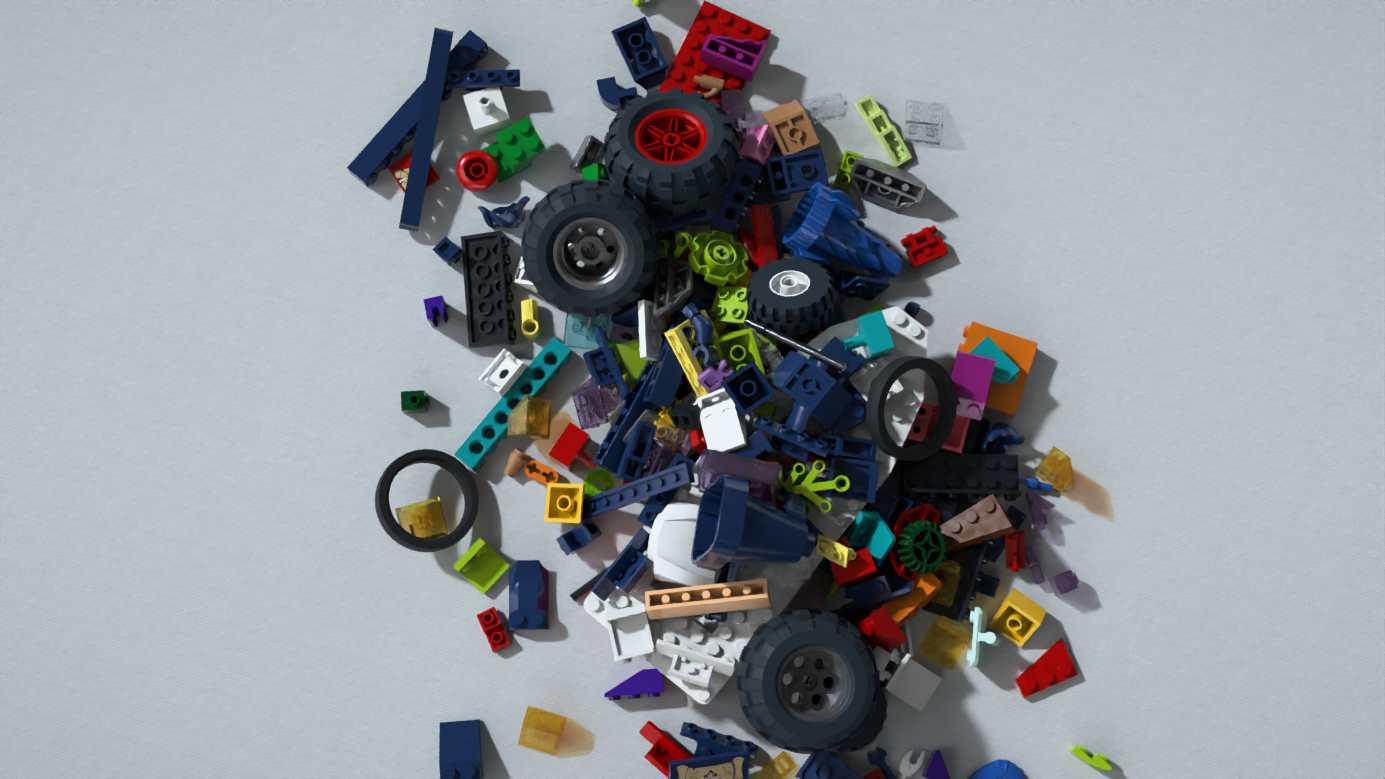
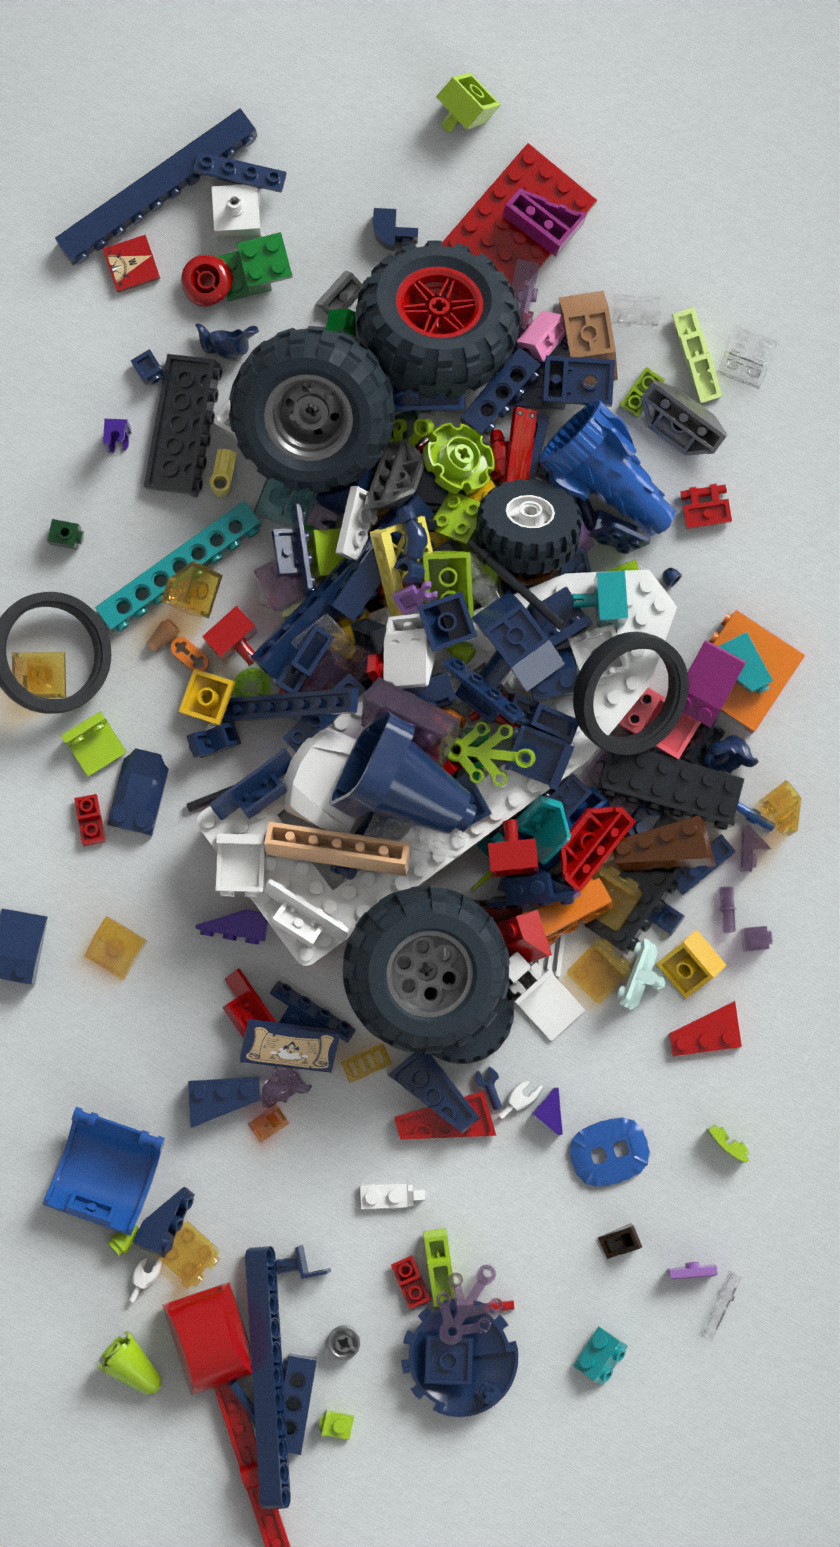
camera: 15 degrees right, 5 degrees up
(426, 130) = (158, 216): dark blue beam -> none
(503, 362) = (177, 515): white piece -> none
(590, 406) = (264, 594): clear purple hinge -> none
(641, 53) = (435, 188): dark blue slope -> none
(711, 83) = (506, 245): medium nougat plant -> none
(795, 506) = (464, 770): dark blue slope -> none
(834, 551) = (496, 833): light yellow hinge -> none
(915, 556) = (609, 839): dark green gear -> none
(1015, 551) = (710, 888): red hinge -> none

